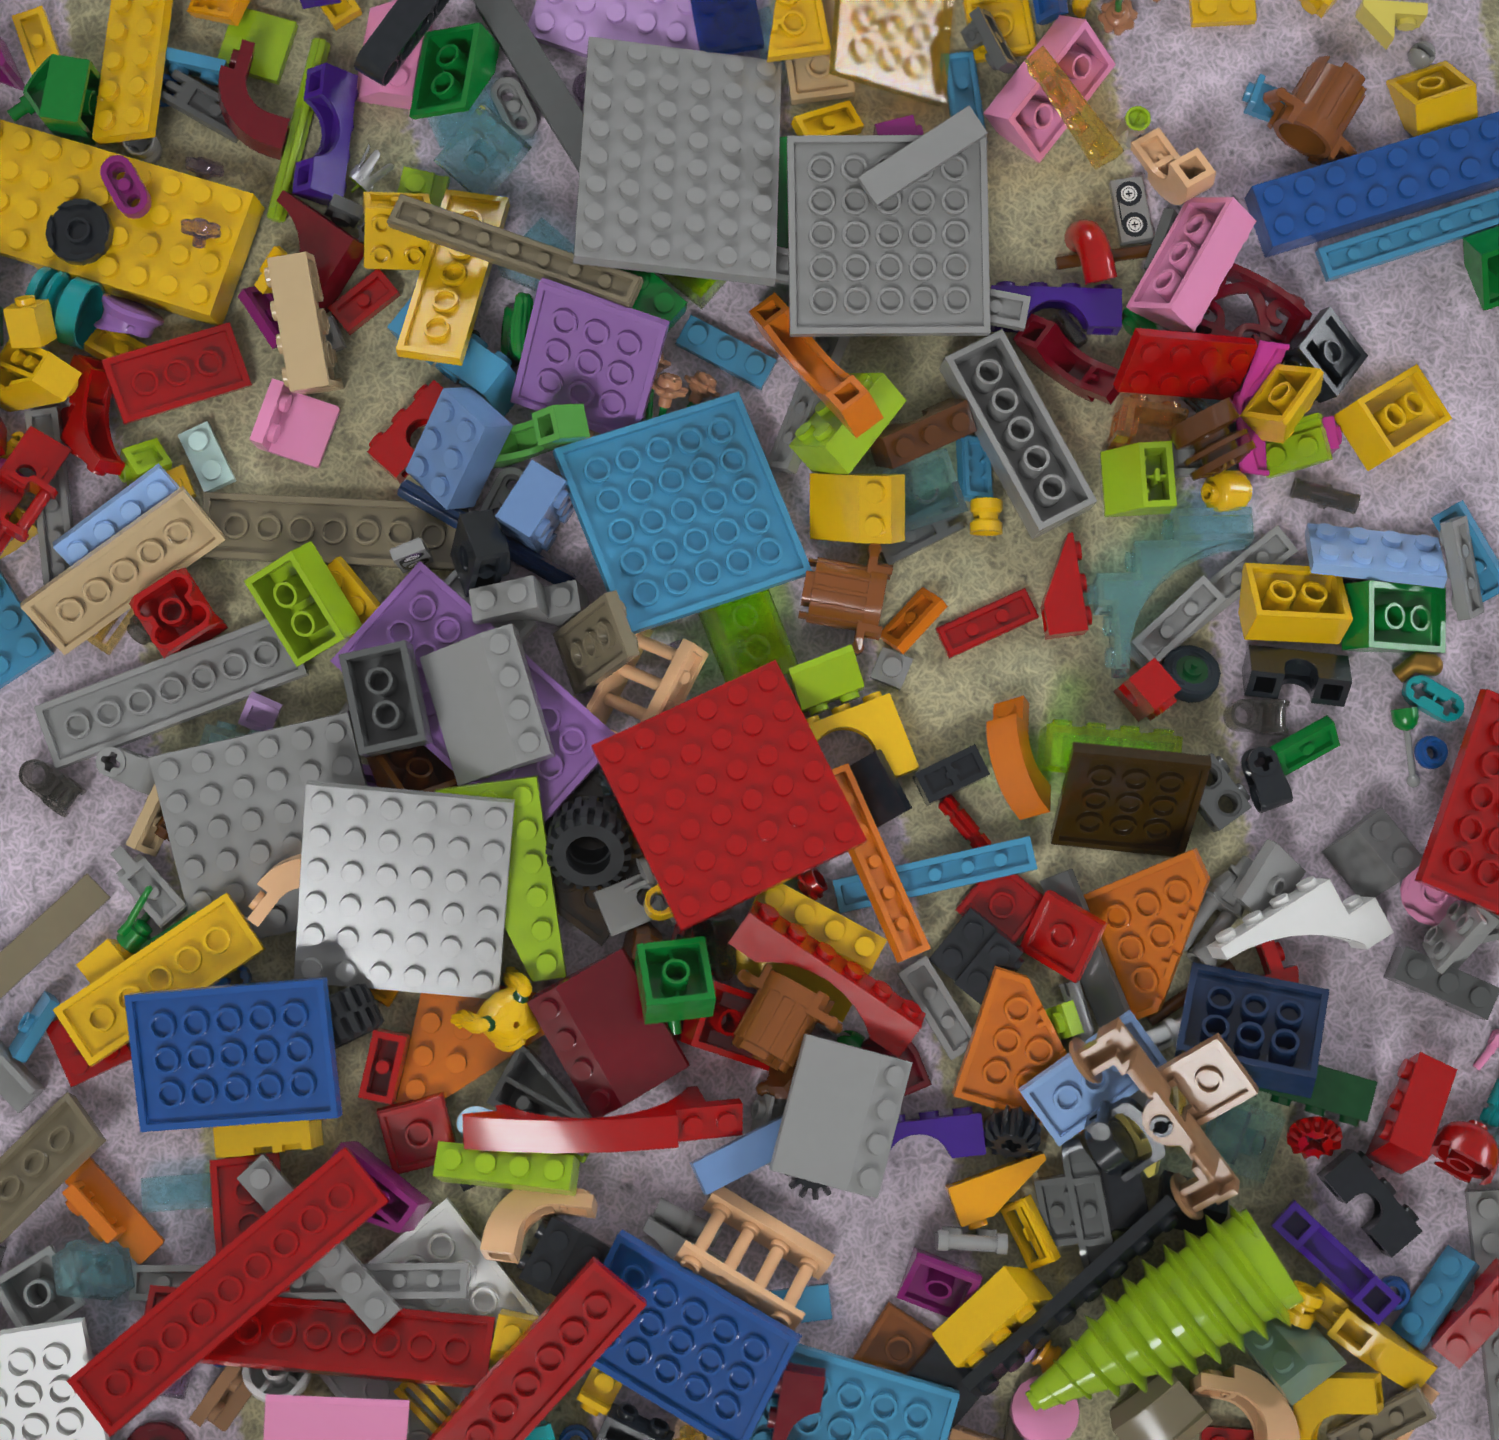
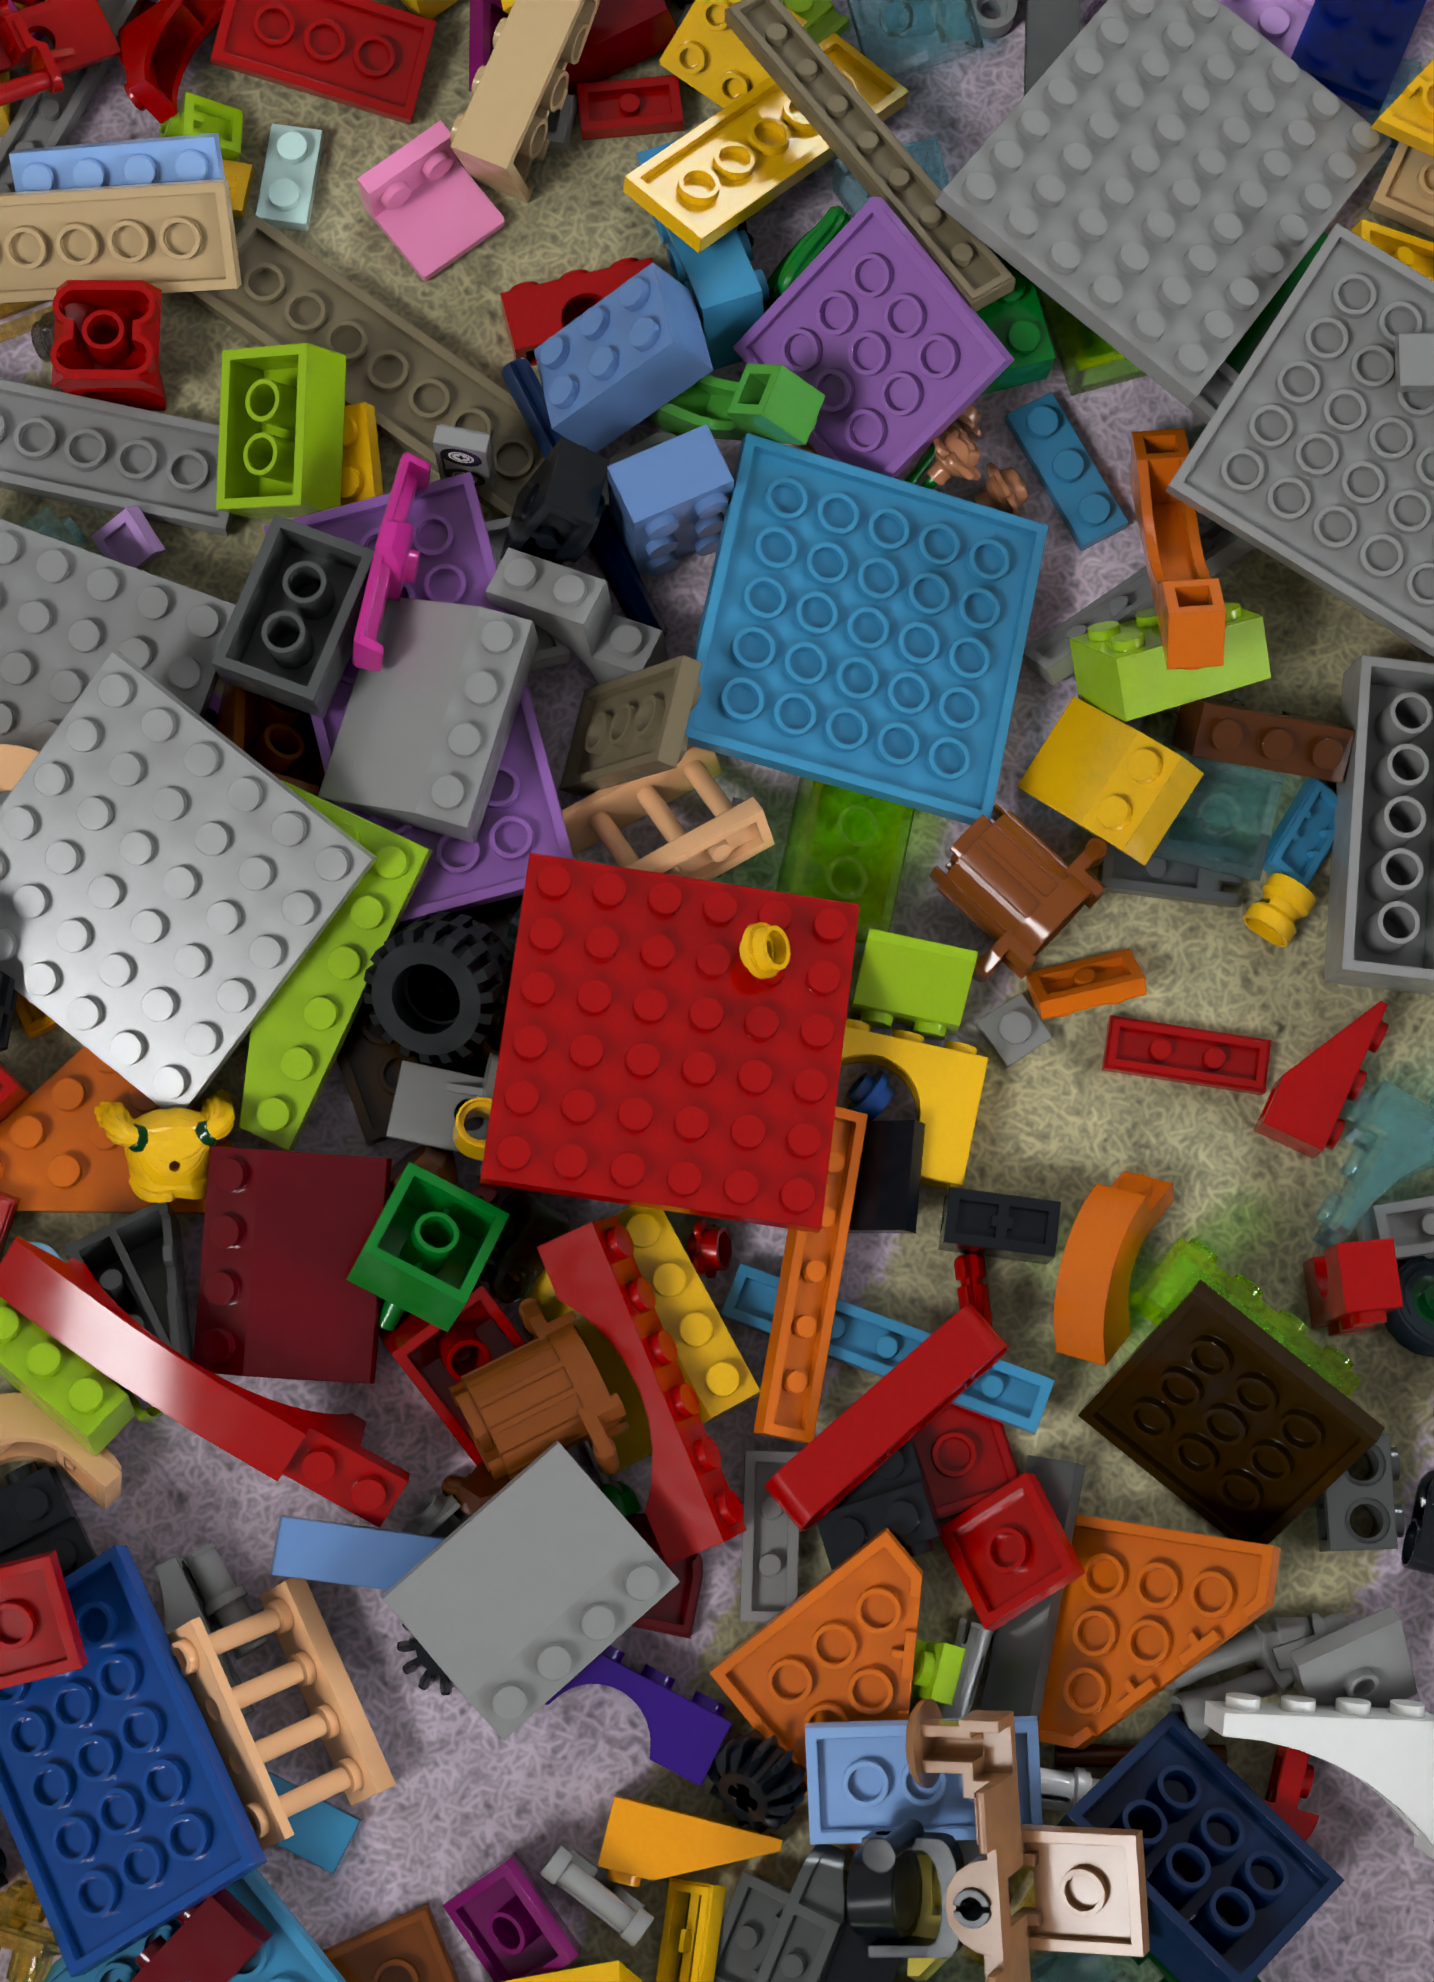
camera: 30 degrees right, 5 degrees down
(416, 637) = (392, 561): none -> dark pink plate
(745, 717) = (764, 950): none -> yellow plate
(841, 750) = (870, 1094): none -> blue plate
(959, 911) = (886, 1417): none -> red beam

